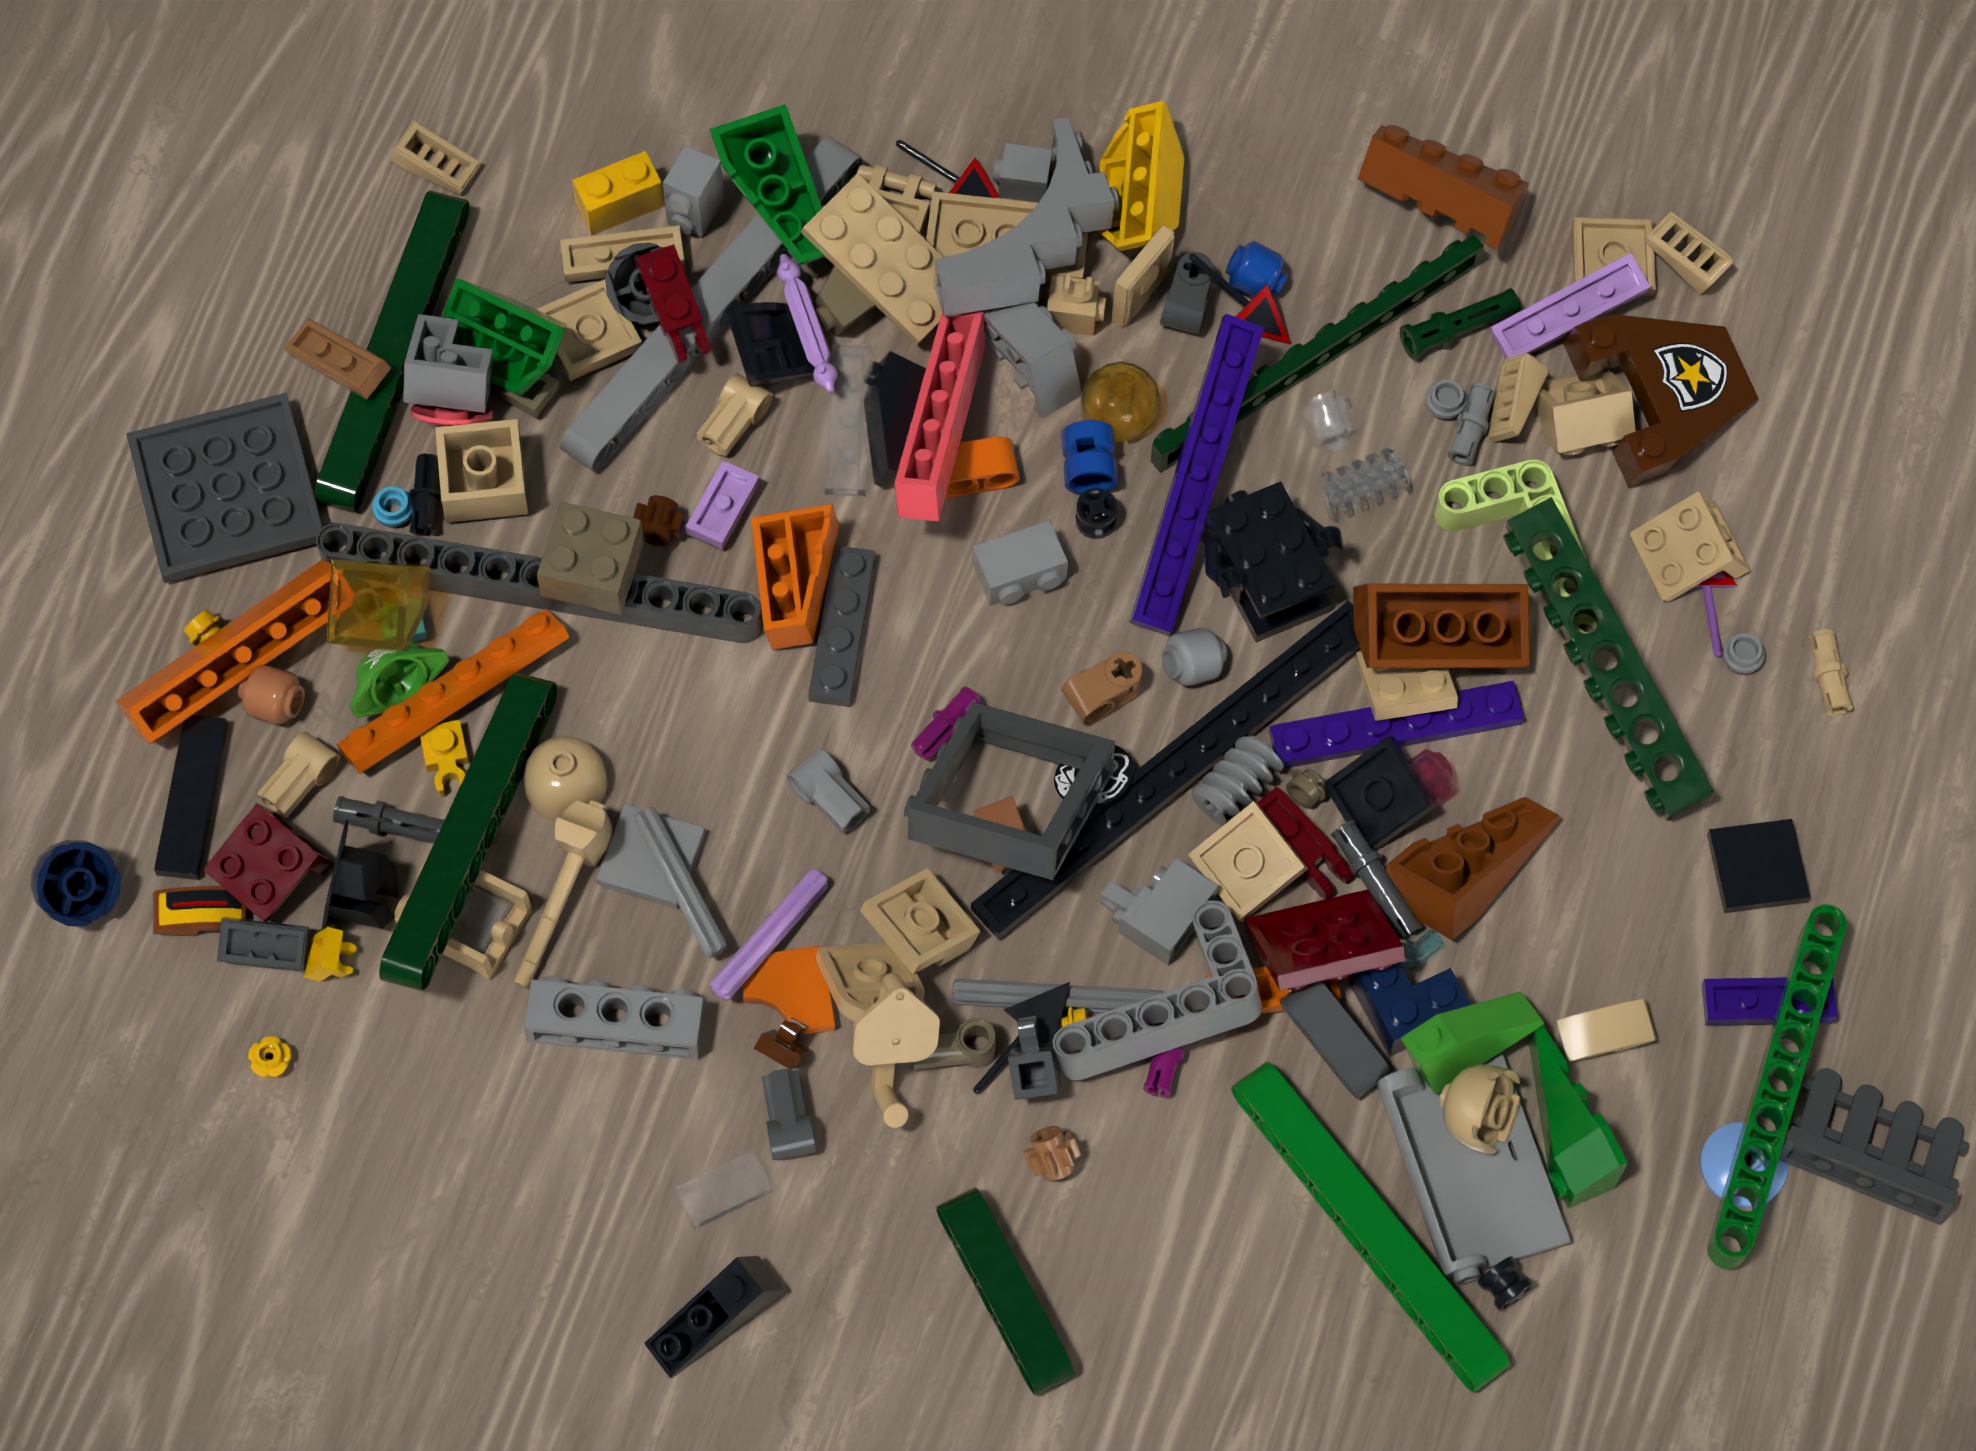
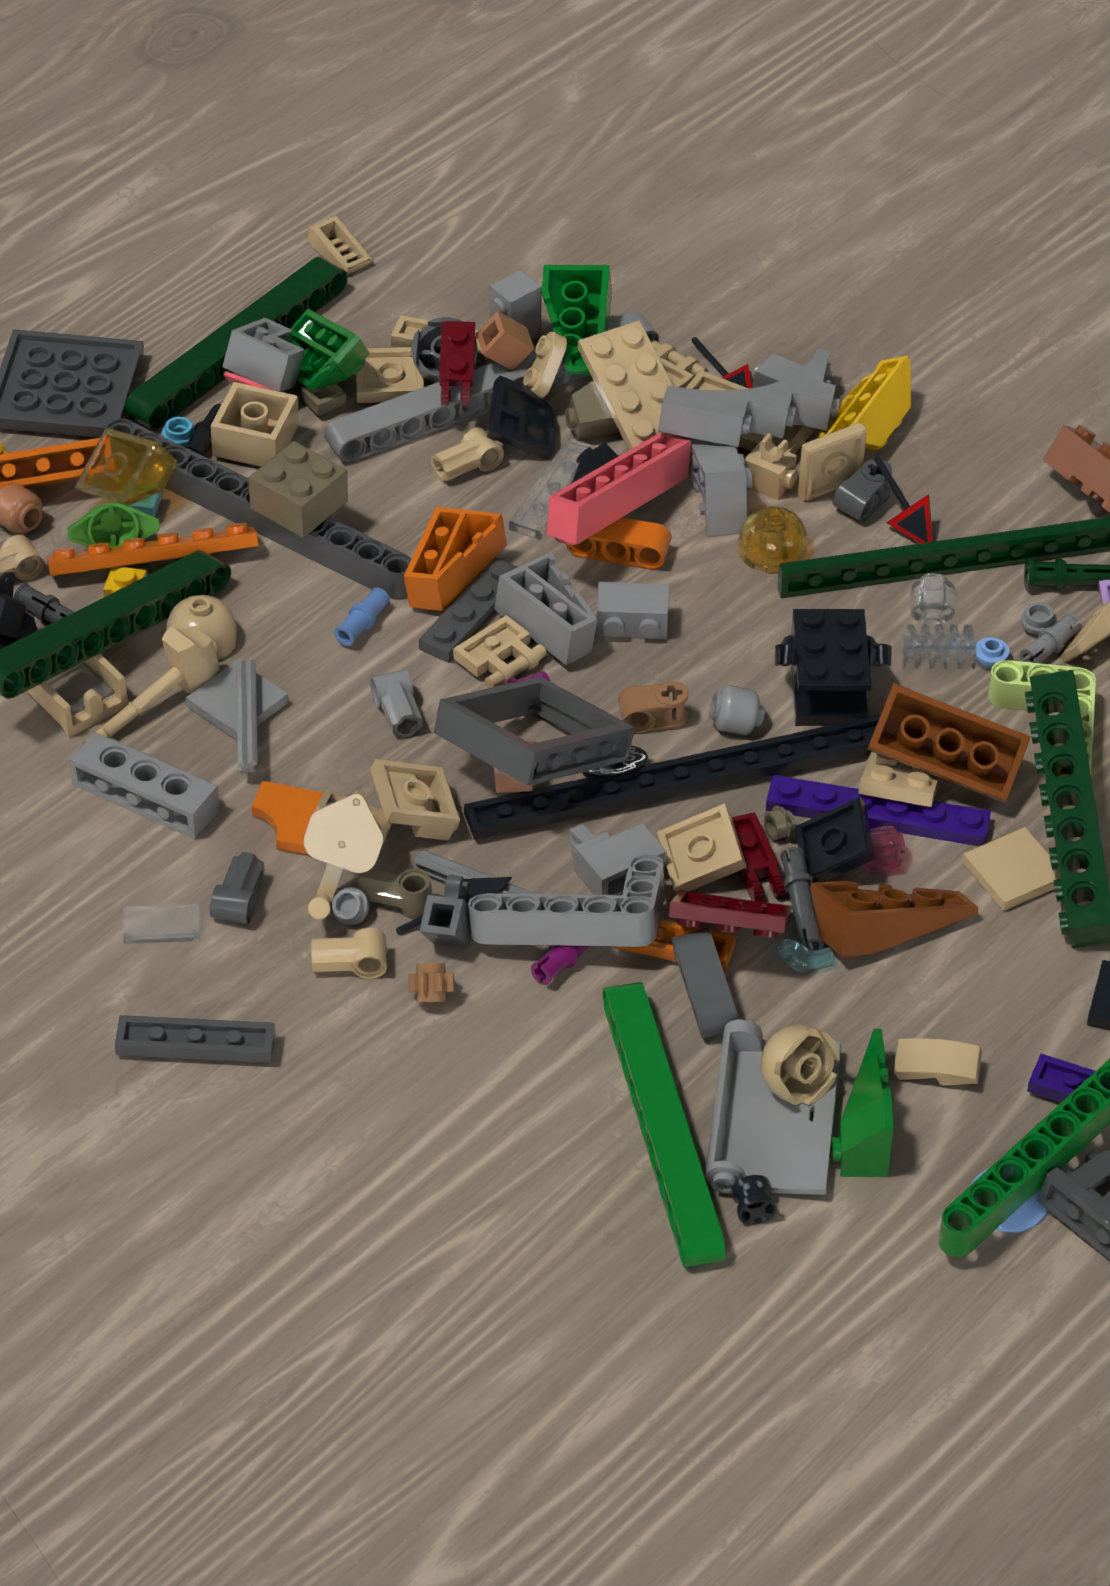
camera: 25 degrees right, 20 degrees down
(337, 358) = (191, 330): medium nougat tile -> none
(618, 193) = (460, 297): yellow brick -> none
(659, 520) = (369, 498): reddish brown gear -> none
(714, 252) = (505, 341): none -> nougat brick
(714, 1313) = (111, 990): black slope -> none
(722, 505) = (416, 509): lavender plate -> none
(730, 688) = (362, 616): none -> medium blue pin
(769, 934) = (295, 771): lavender axle -> none
(771, 263) = (549, 355): none -> tan plate
(783, 1044) = (264, 841): reddish brown tile -> none
(807, 323) = (554, 416): lavender wheel -> none
(840, 1328) = (195, 1038): none -> dark grey plate
(892, 672) = (495, 644): none -> tan plate
(915, 1085) = (350, 906): none -> light grey plate
(934, 603) = (547, 608): none -> light grey wedge
(957, 1144) = (362, 954): none -> tan piece
(1005, 1291) = (339, 1061): dark green beam -> none
(1089, 456) = (725, 562): blue wheel -> none
(1092, 504) = (712, 601): black wheel -> none
(1196, 474) = (802, 590): dark purple plate -> none
(1235, 777) = (732, 789): light grey piece -> none
(1254, 267) = (931, 482): blue head -> none
(1398, 1007) = (781, 991): dark blue brick -> none
(1423, 473) = (990, 651): none -> light blue plate
(1468, 1037) = (827, 1012): bright green slope -> none
(1566, 745) = (1012, 868): none -> tan tile

